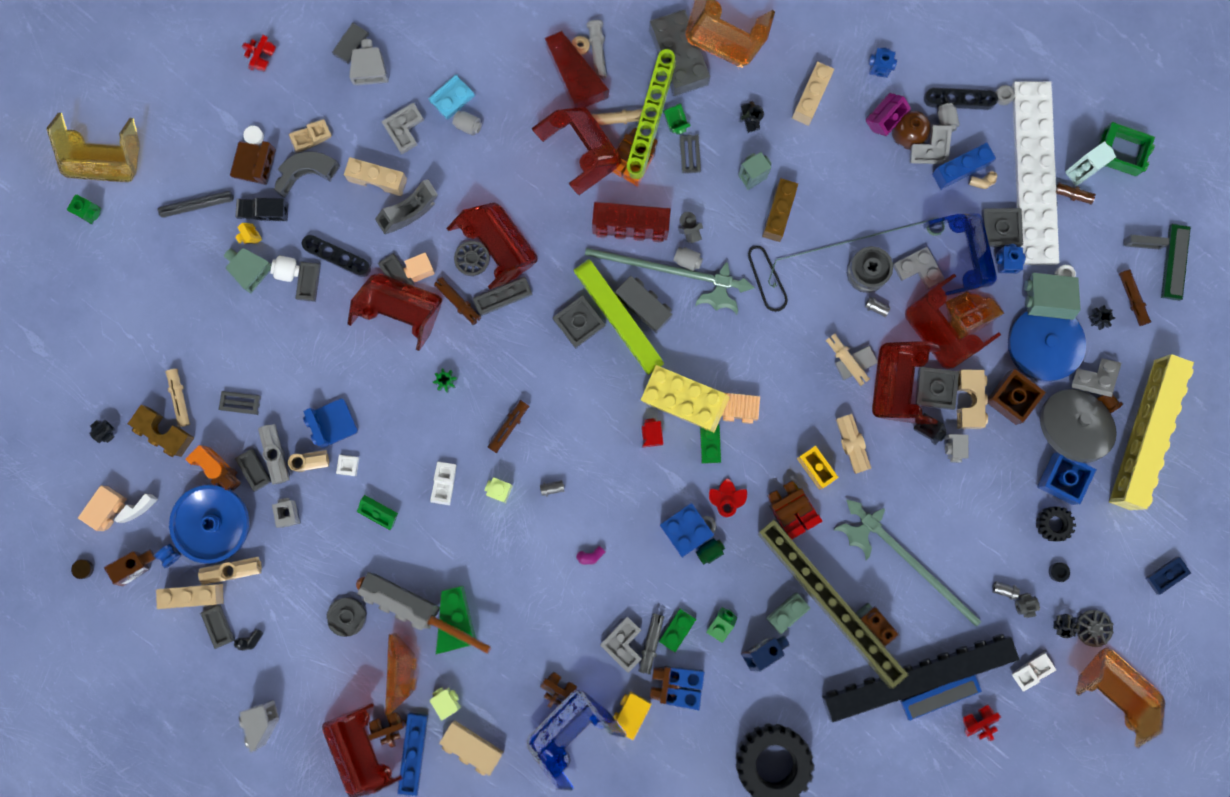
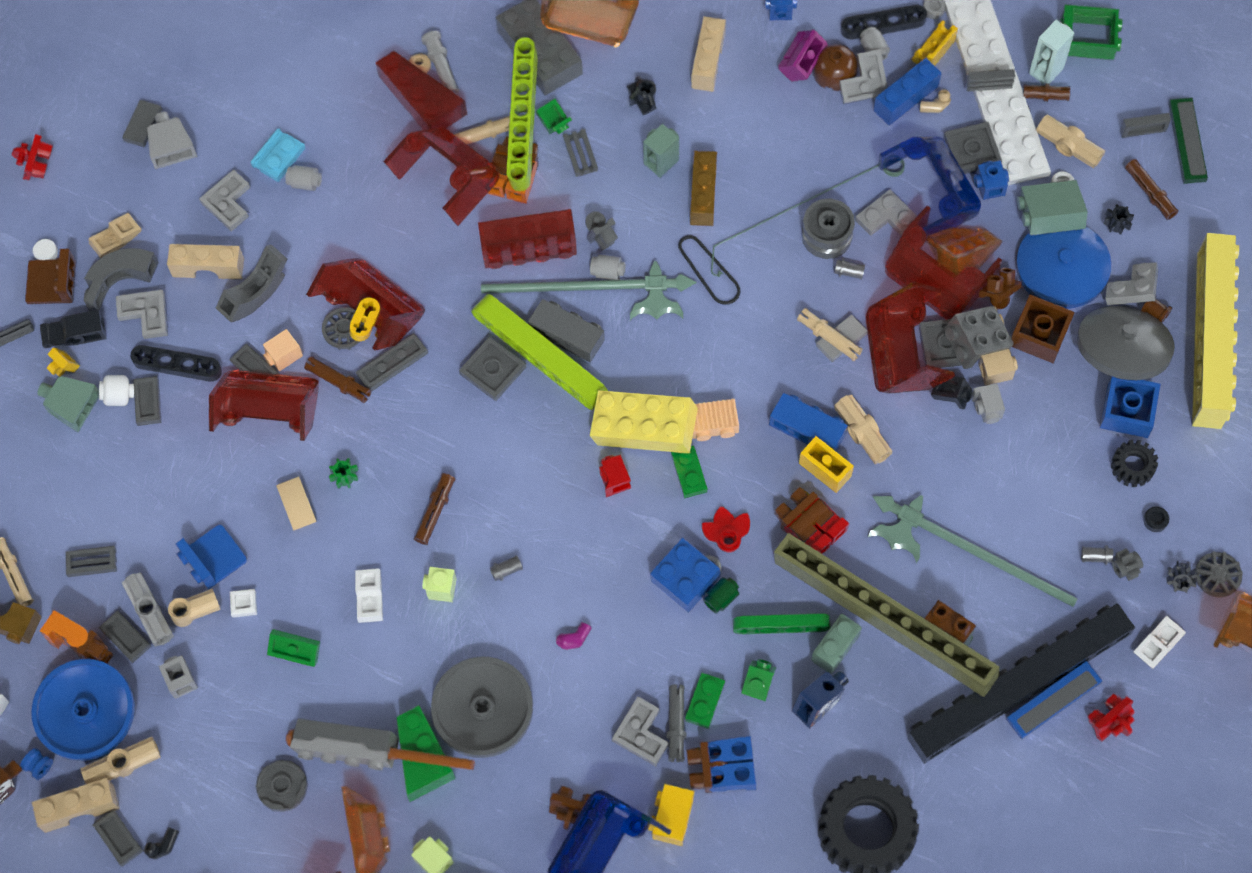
camera: 10 degrees left, 15 degrees down
(324, 204) = (148, 307): none -> light grey plate
(404, 395) = (296, 503): none -> tan slope
(485, 253) = (360, 317): none -> yellow beam
(508, 597) = (482, 707): none -> dark grey dish
(750, 585) = (781, 624): none -> green beam
(812, 428) = (806, 422): none -> blue brick
(964, 392) = (977, 334): none -> dark grey bracket
(993, 354) = (1001, 287): none -> reddish brown hips
(996, 129) = (936, 44): none -> yellow hinge
(1034, 174) = (990, 80): none -> dark grey tile
(1082, 240) = (1070, 141): none -> tan piece

